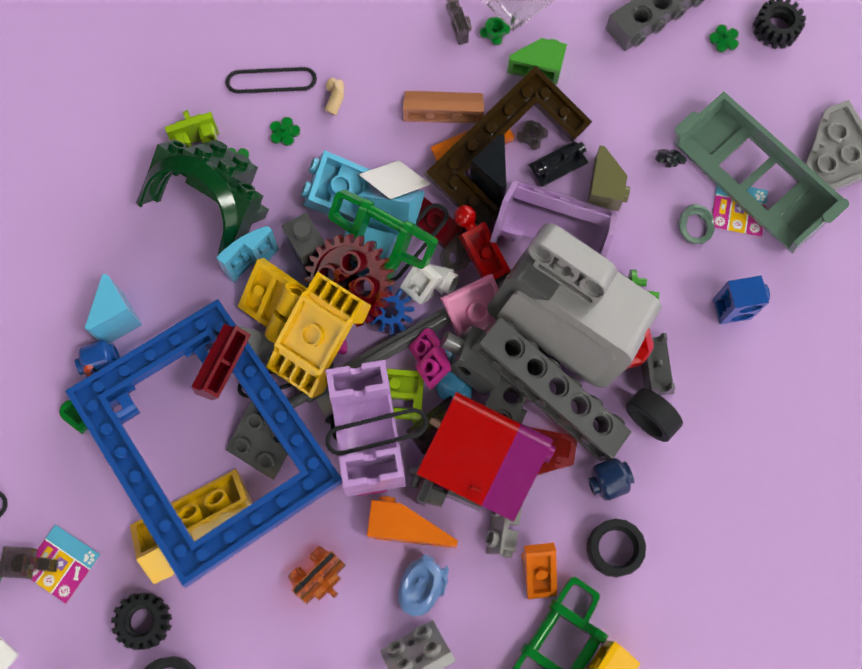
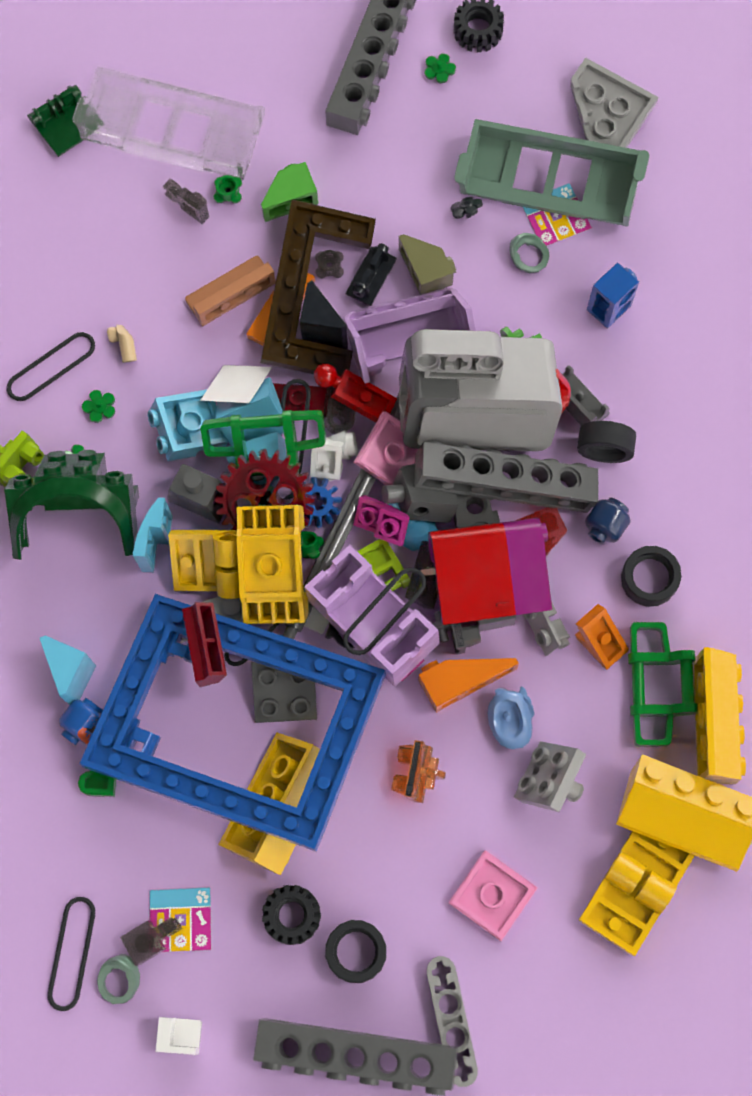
camera: 30 degrees left, 0 degrees up
(361, 339) = (310, 545): none -> green plate

